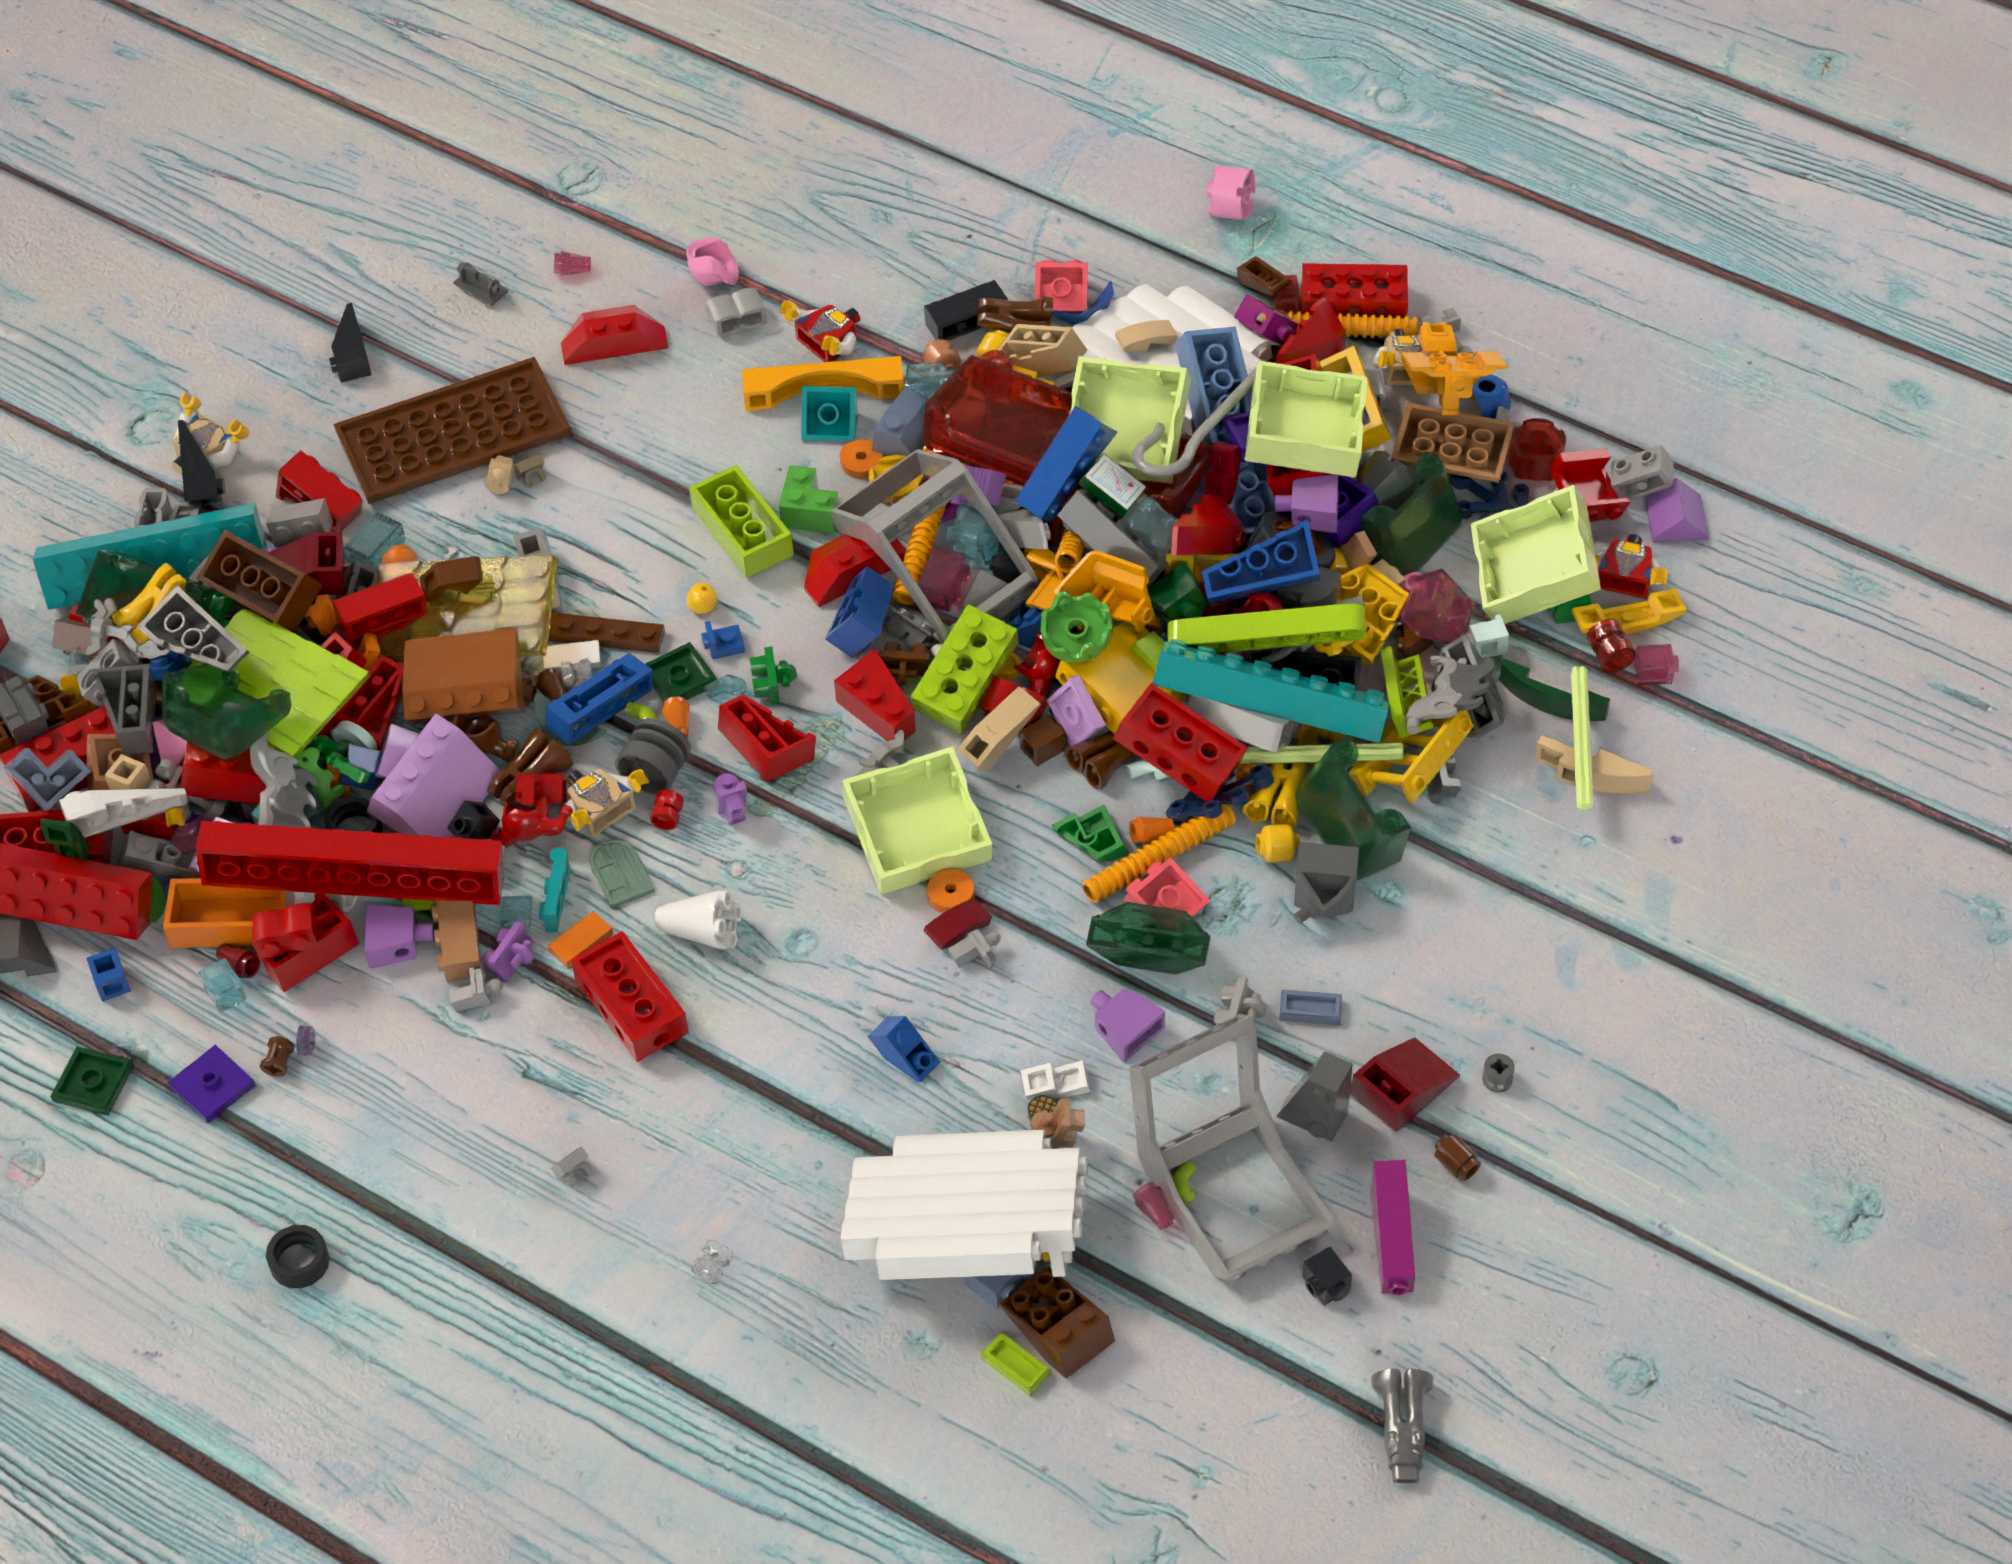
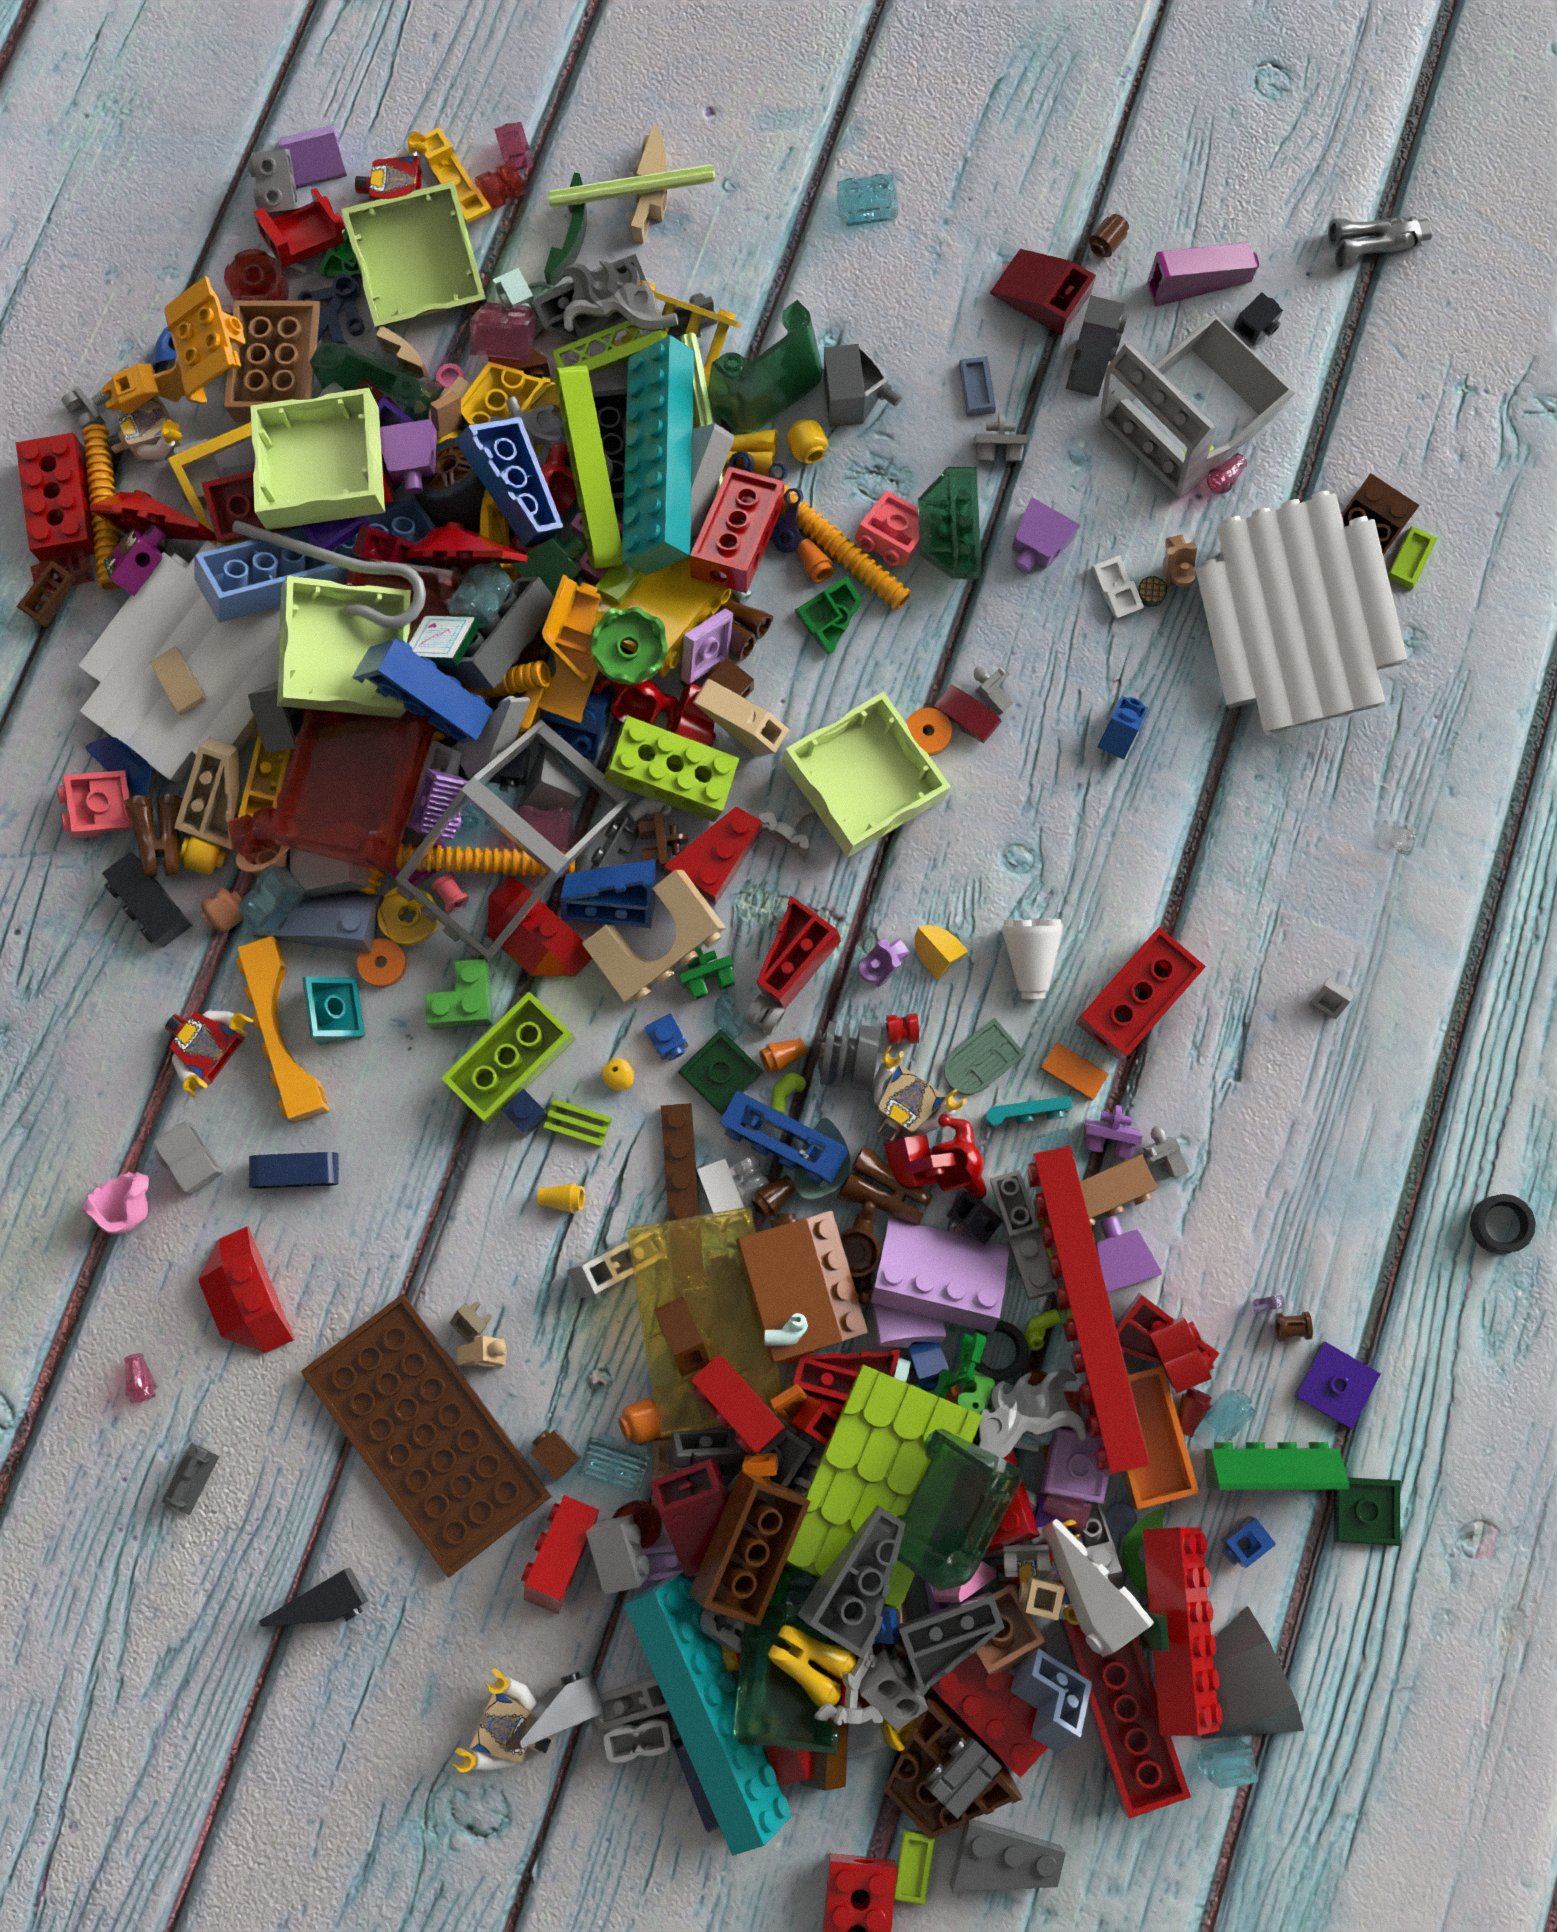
camera: 105 degrees left, 25 degrees up
(157, 1002) = (1275, 1467): none -> green slope
(400, 504) = (554, 1453): none -> reddish brown brick
(421, 646) = (789, 1334): none -> light aqua arm
(609, 546) = (562, 1197): none -> yellow cone
(667, 565) = (552, 1114): none -> lime tile
(691, 528) = (525, 1112): none -> dark blue brick
(700, 375) = (293, 1170): none -> dark blue beam
(709, 711) = (759, 1010): none -> light grey wheel
(733, 855) = (938, 949): none -> yellow brick
(810, 655) = (695, 927): none -> tan arch
(1442, 552) = (402, 349): none -> tan slope
(1492, 1078) = (1005, 222): dark grey wheel -> none
(1541, 946) = (867, 200): none -> clear light blue brick

